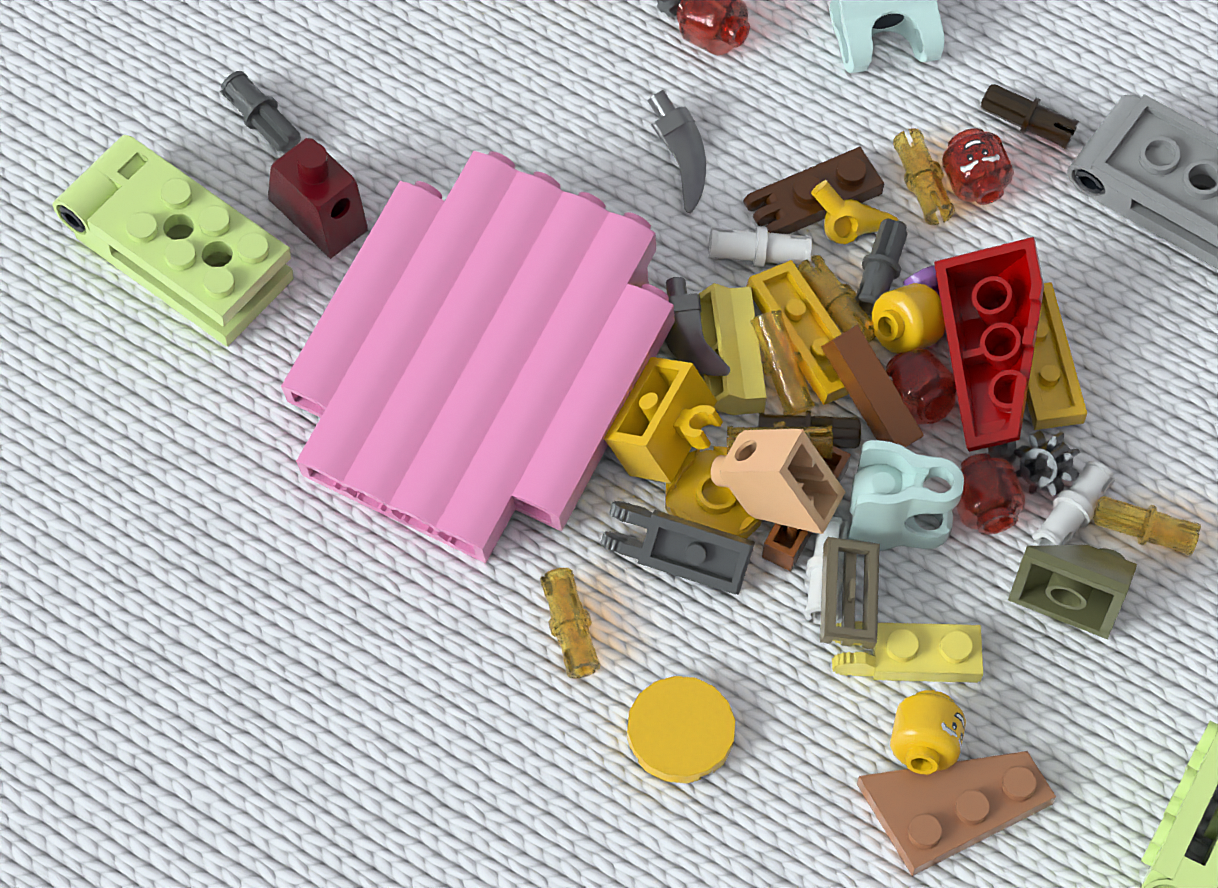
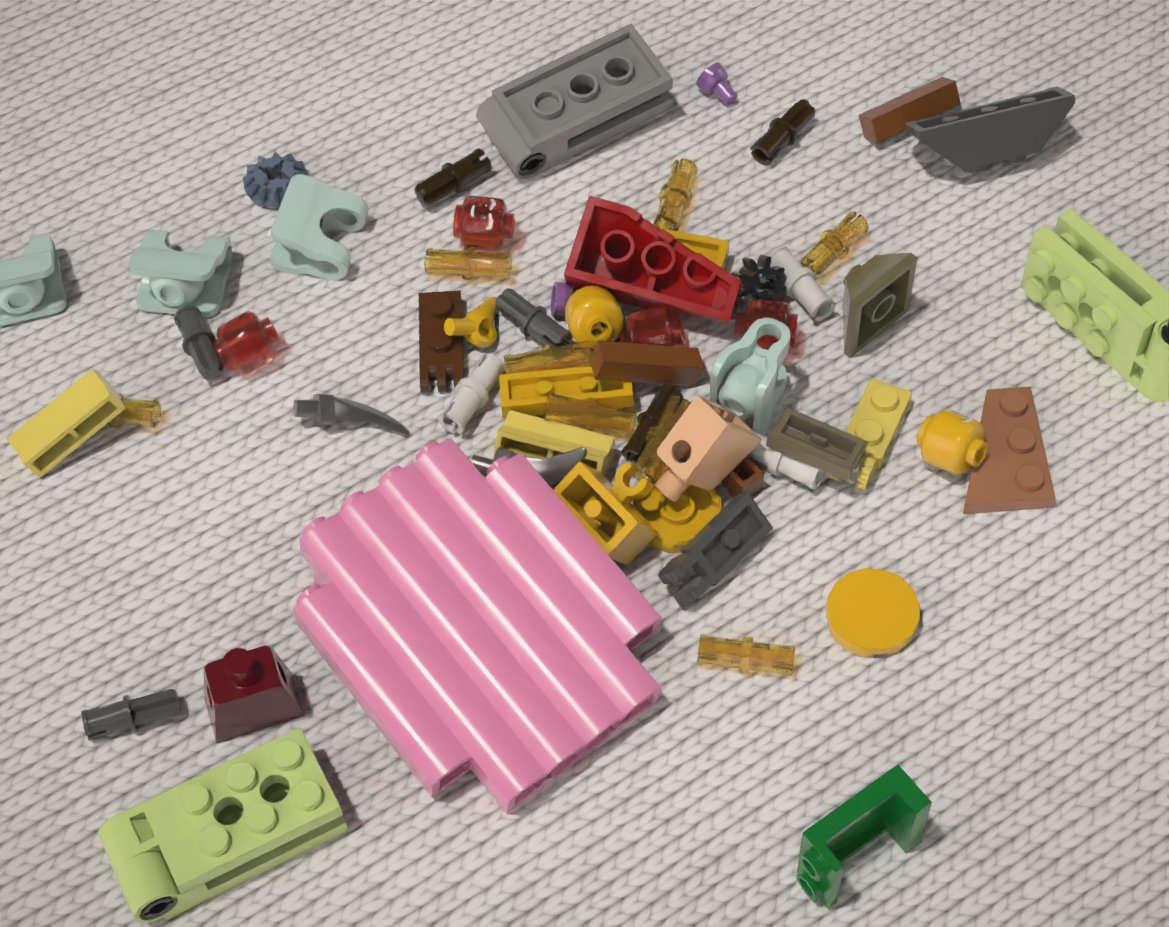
camera: 60 degrees left, 5 degrees down
(396, 779) = (887, 804): none -> green panel
(1125, 340) = (675, 195): none -> clear yellow pin

